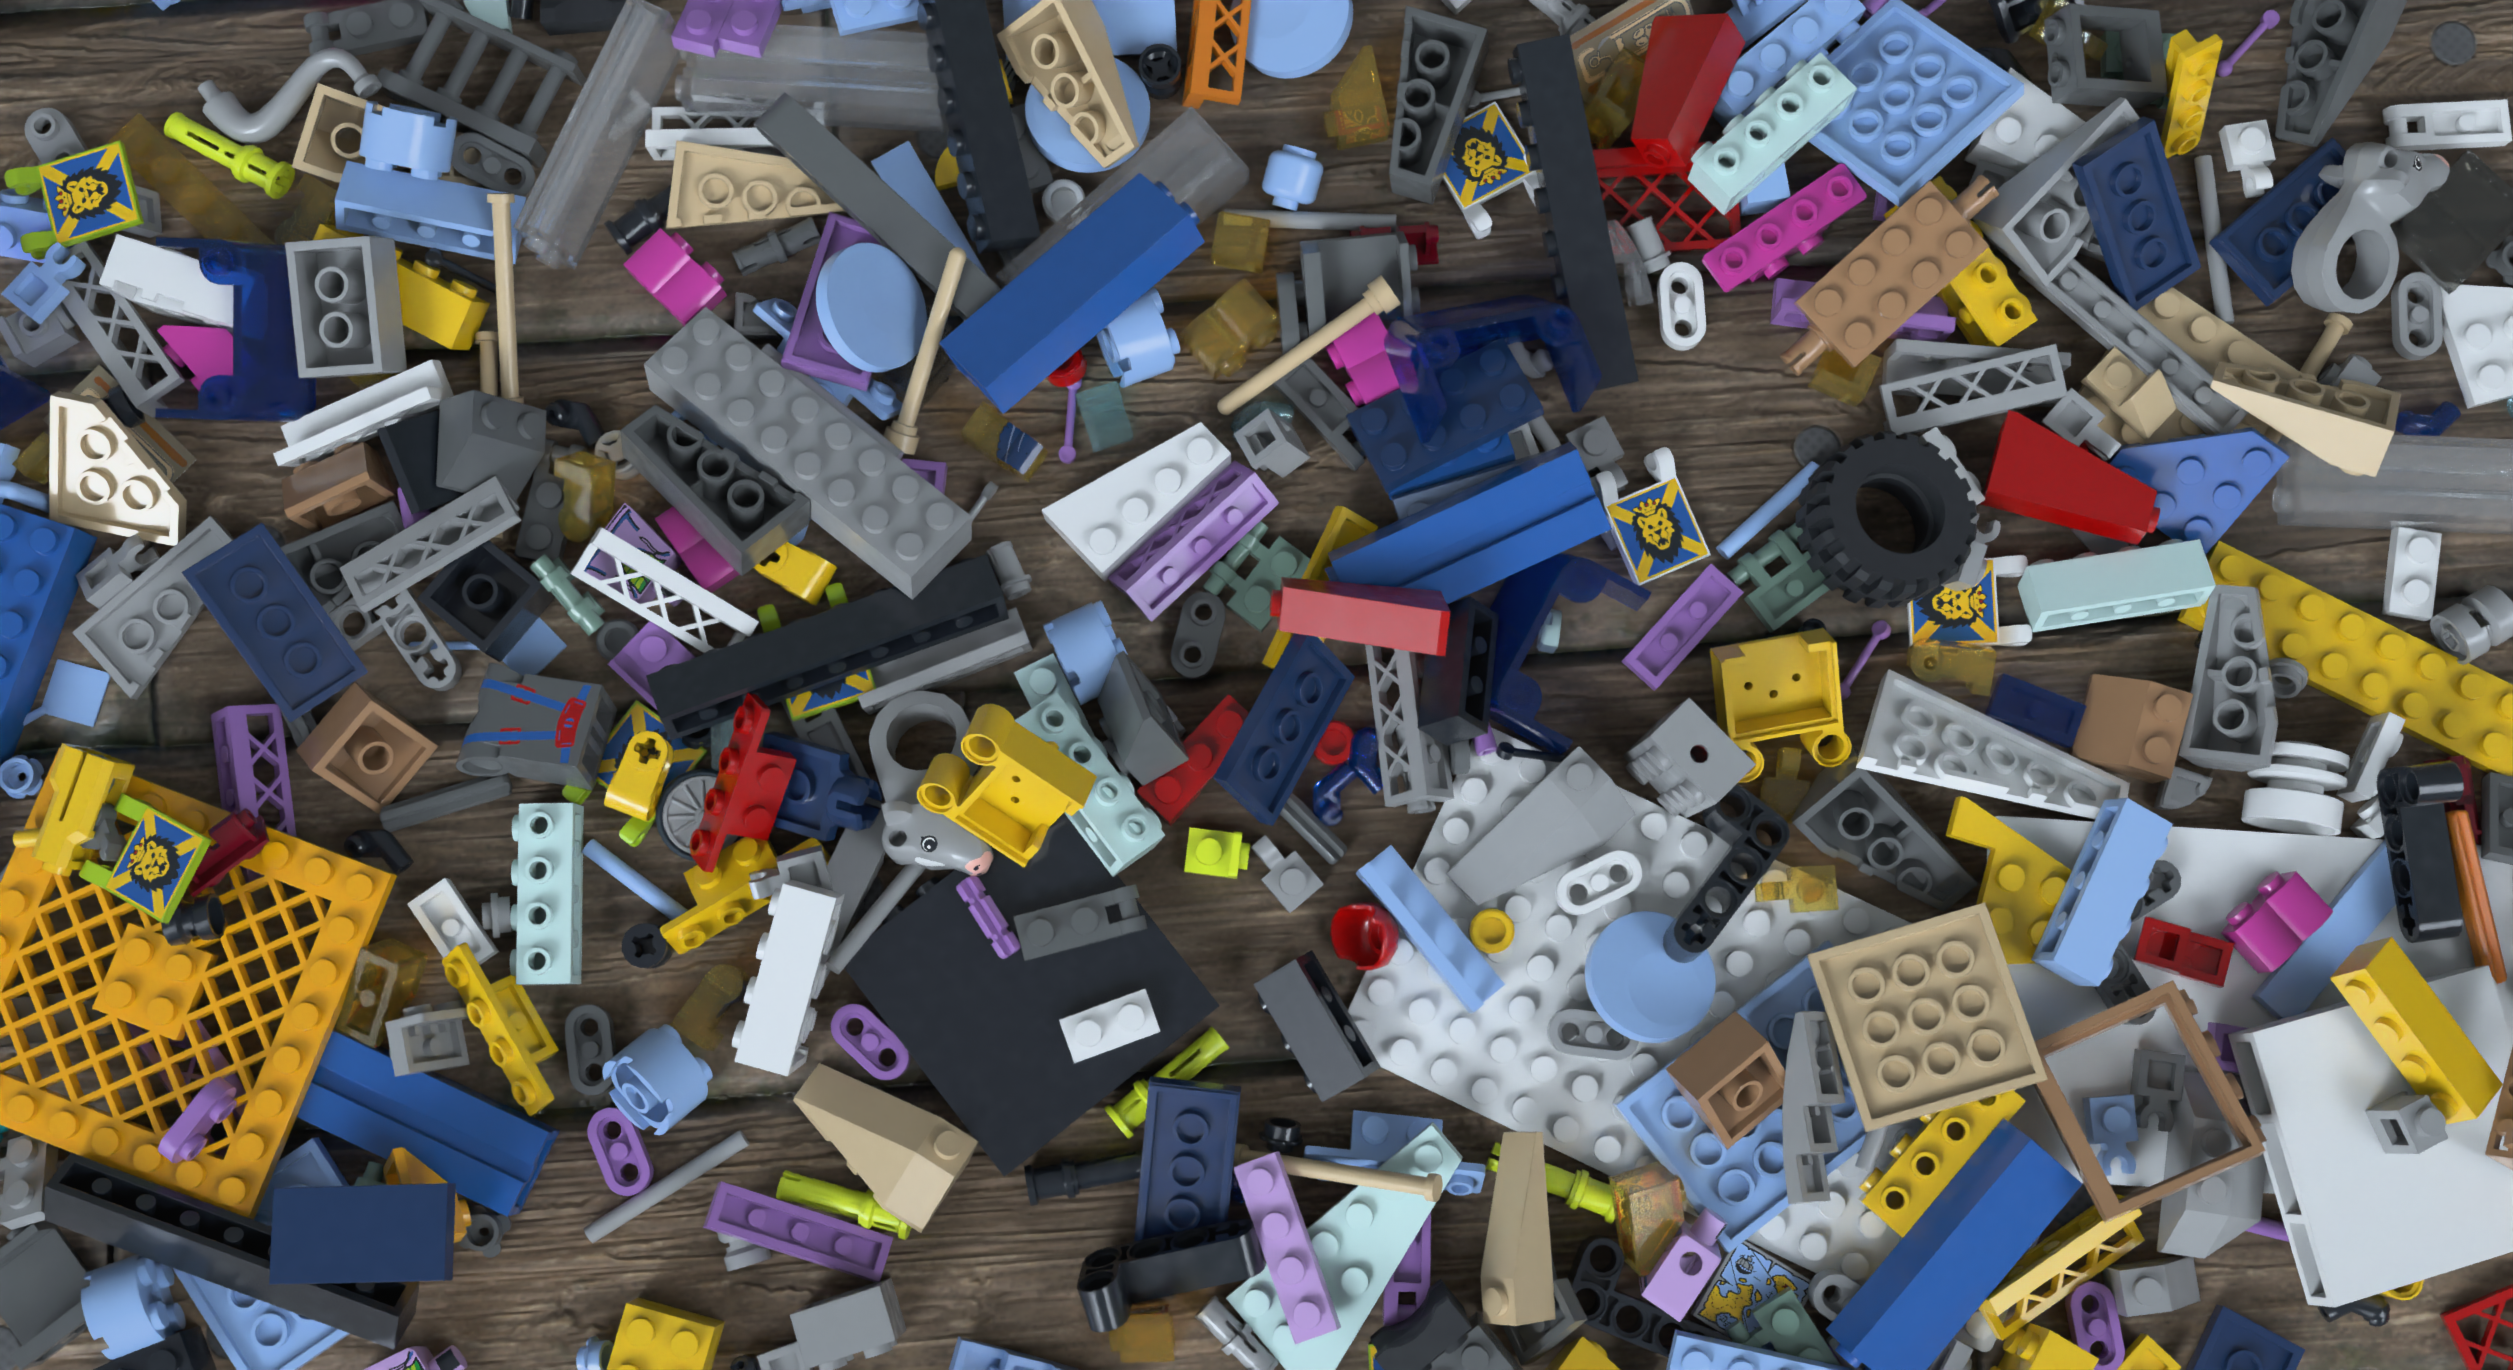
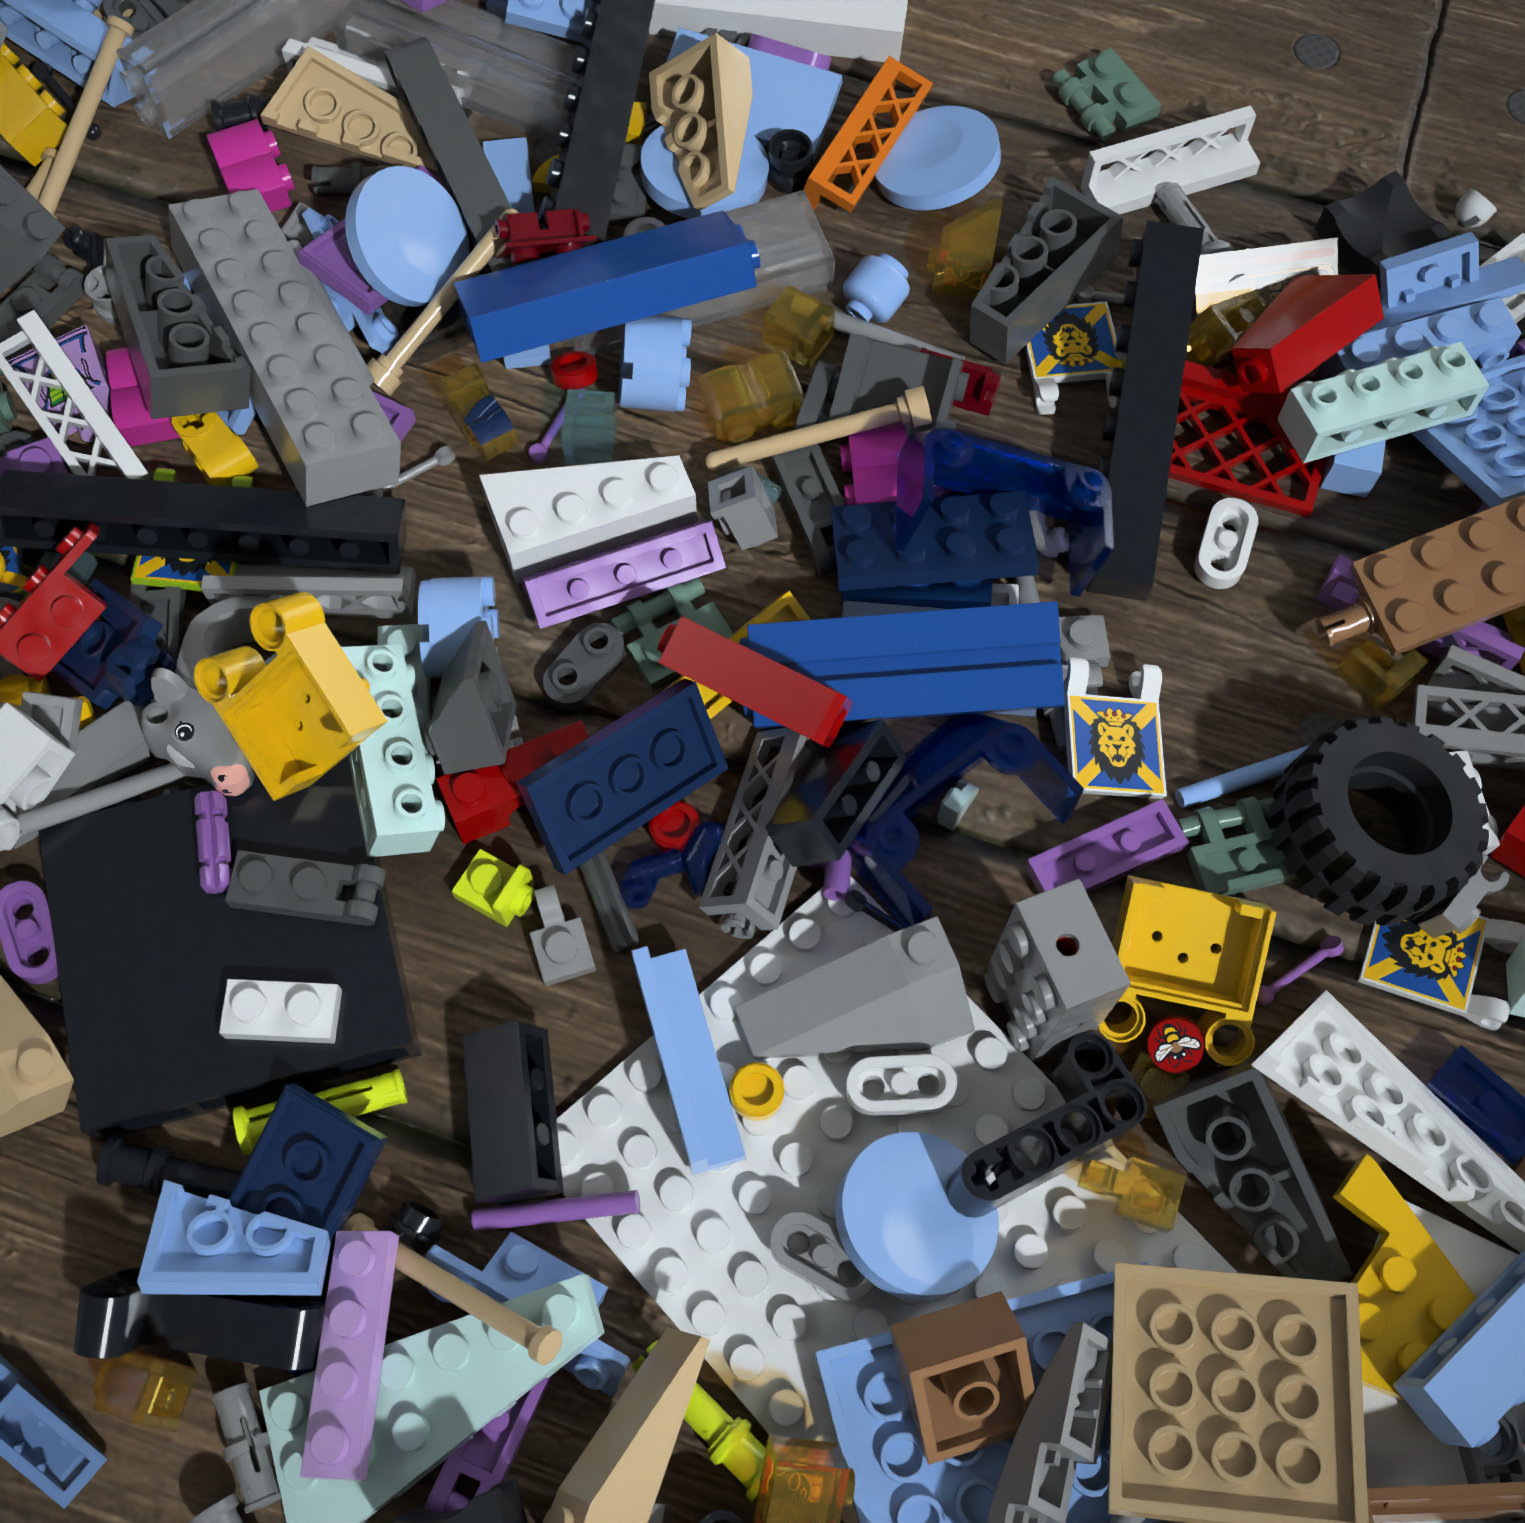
camera: 25 degrees right, 15 degrees down
(587, 494) = (60, 298): clear yellow leg -> none
(1009, 570) = (423, 541): light grey pin -> none
(1010, 256) = (526, 241): none -> dark red hinge
(1165, 1216) = (223, 1250): none -> light blue wing
(1364, 935) = (612, 1035): red hair -> none
(1380, 1081) = (556, 1210): none -> medium lavender bar
(1459, 757) = (802, 886): dark grey tile -> none
(1625, 253) = (1186, 473): clear slope -> none
(1649, 245) = (1213, 472): light grey pin -> none
(1784, 230) = (1362, 507): dark pink bracket -> none
(1791, 765) = (1175, 1043): none -> tile
(1941, 659) = (1391, 999): clear yellow leg -> none

